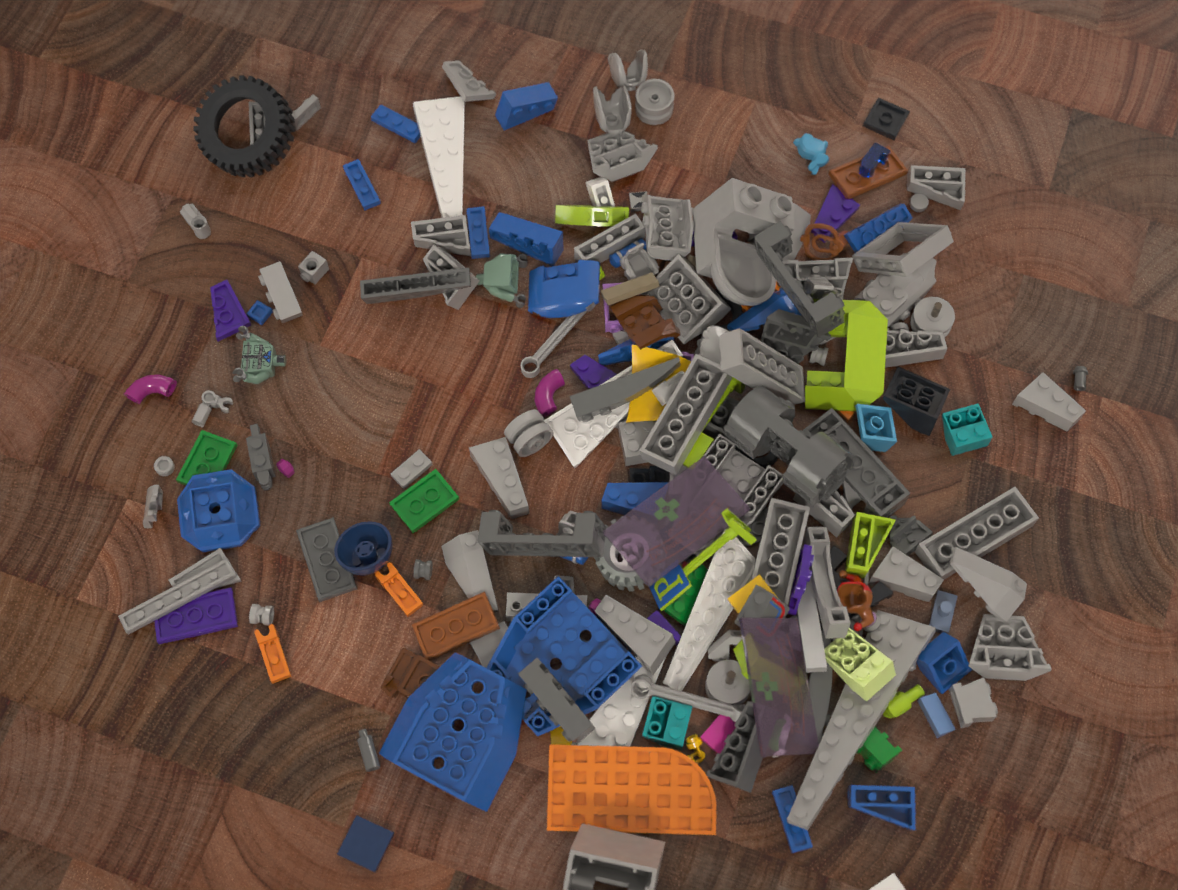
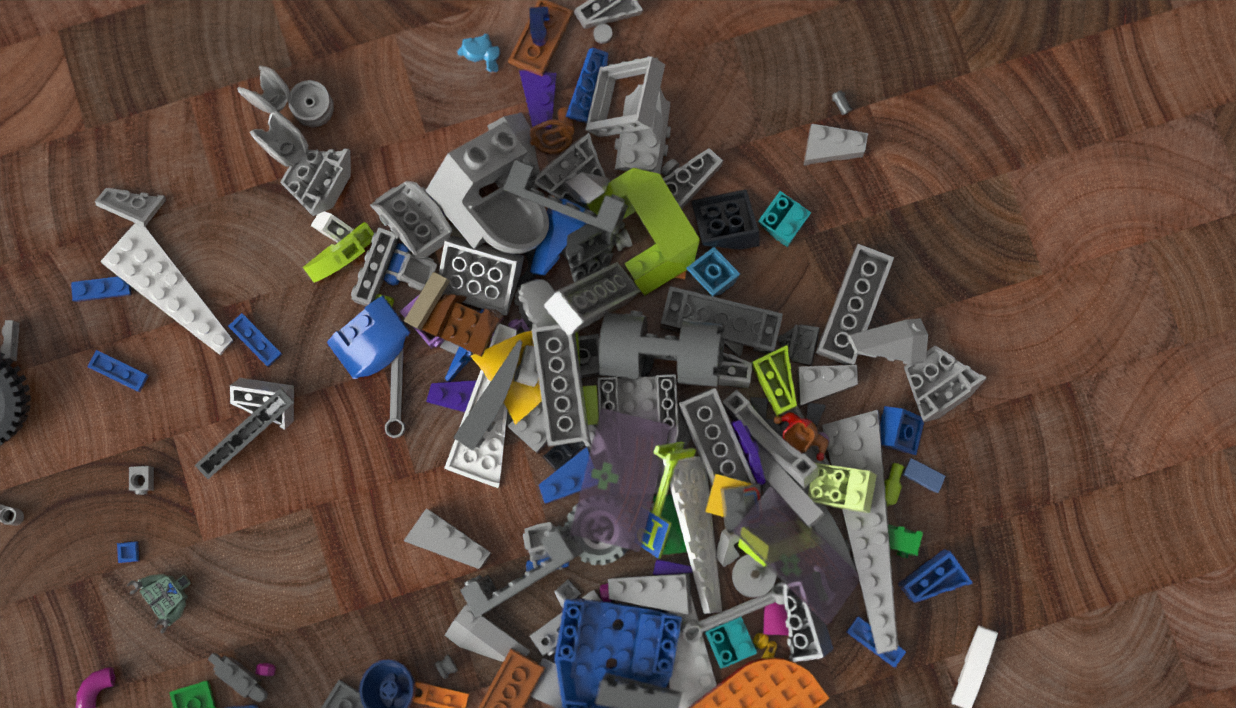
camera: 35 degrees left, 15 degrees up
(210, 400) = (152, 661): light grey bar -> none
(227, 311) = (100, 572): dark purple wing -> none
(280, 292) = (133, 524): light grey wedge -> none
(411, 469) = (368, 590): light grey plate -> none
(424, 501) = (401, 609): green plate -> none
(446, 233) = (228, 366): light grey wedge -> none
(501, 277) = (308, 366): sand green torso -> none
(525, 104) = (200, 189): blue wedge -> none
(528, 237) = (301, 315): blue wedge -> none
(528, 433) = (441, 490): light grey wheel -> none
(545, 391) = (425, 442): magenta cylinder -> none
(636, 200) = (365, 208): light grey tile -> none
(933, 315) = (690, 137): light grey wheel -> none
(943, 611) = (871, 388): sand blue tile -> none
(973, 702) = (944, 445): light grey hips -> none

